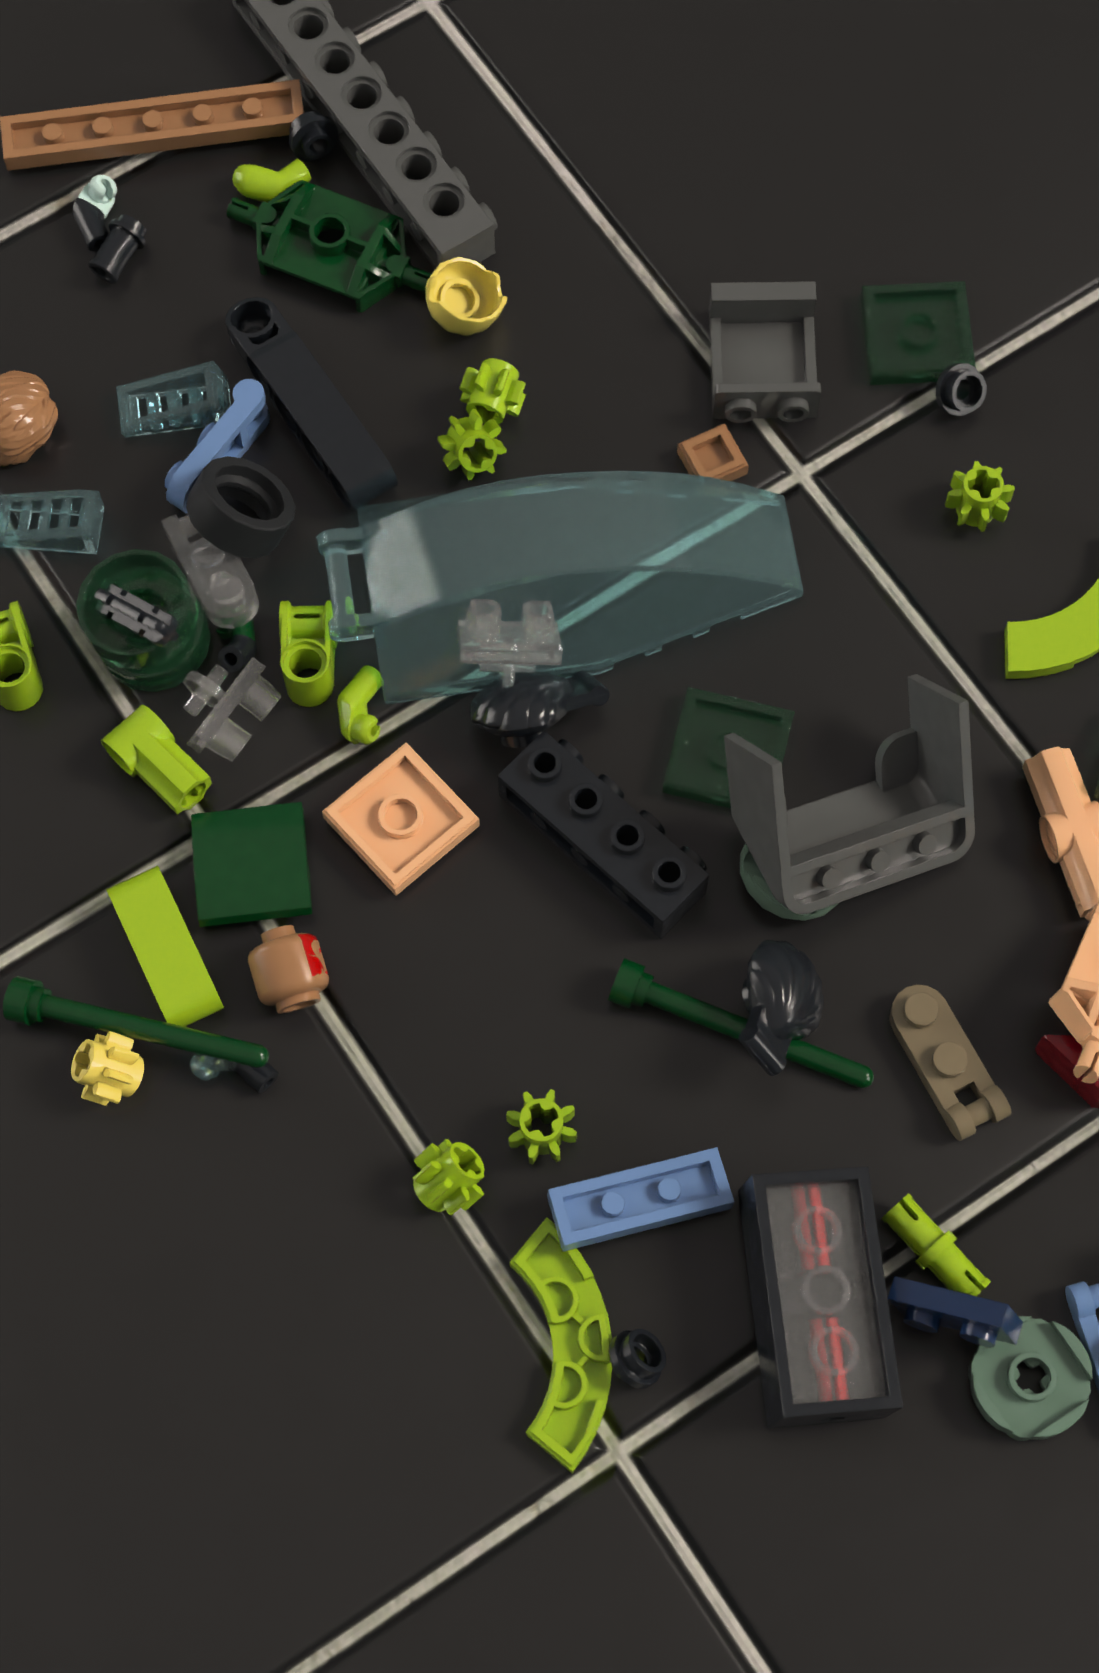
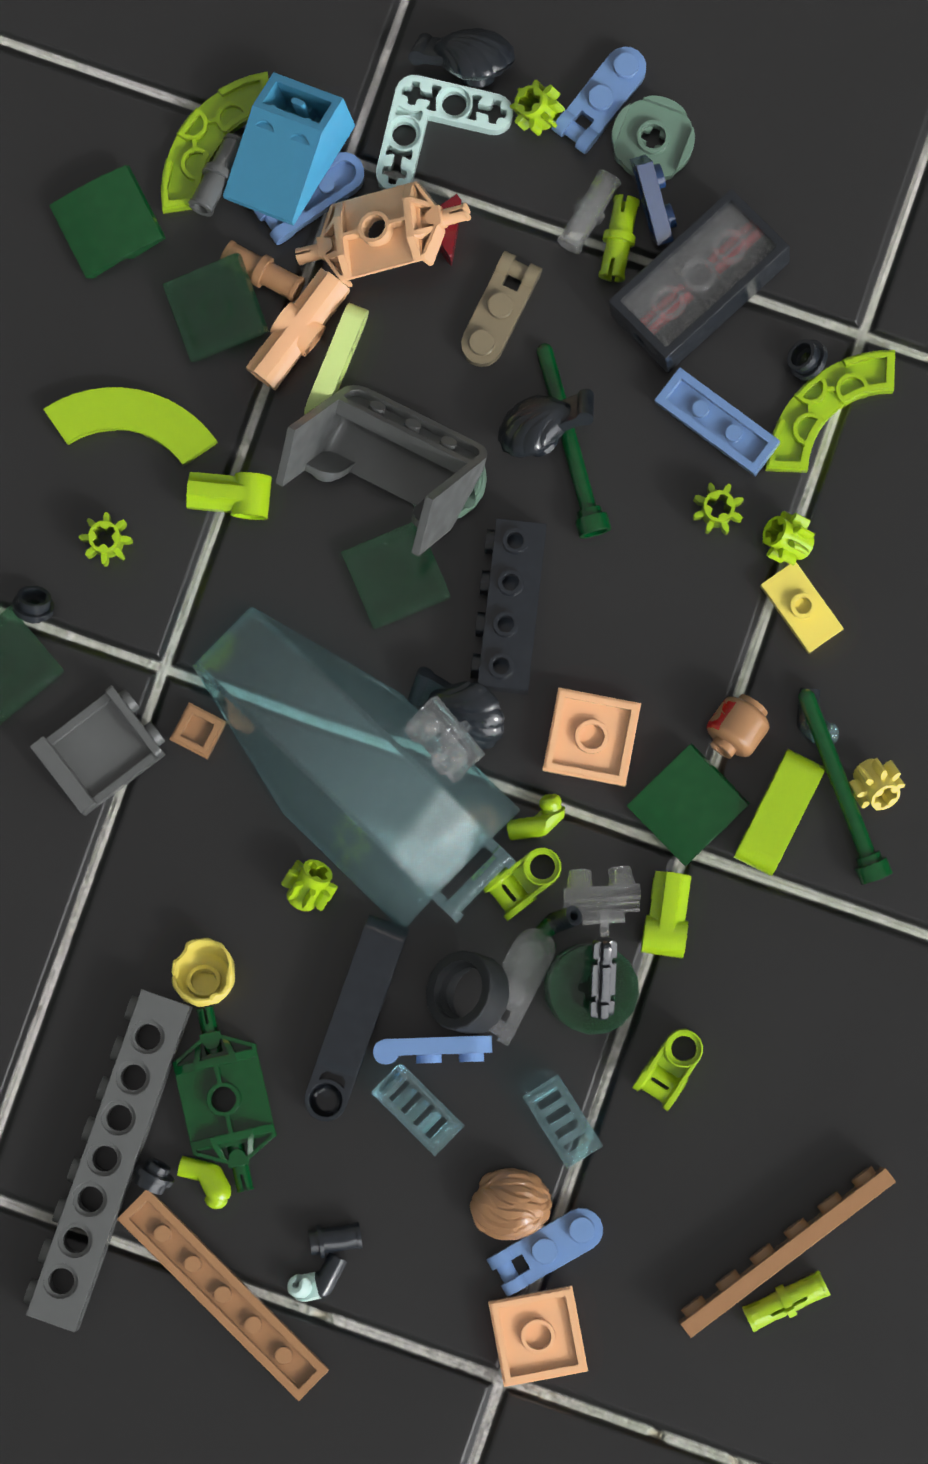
camera: 125 degrees left, 15 degrees up
(362, 1141) = (801, 607): none -> light yellow plate
(493, 390) = (260, 901): lime gear -> none
(942, 641) = (241, 495): none -> lime piece
(991, 1239) = (589, 211): none -> clear pin
(1015, 852) = (338, 355): none -> yellowish green beam

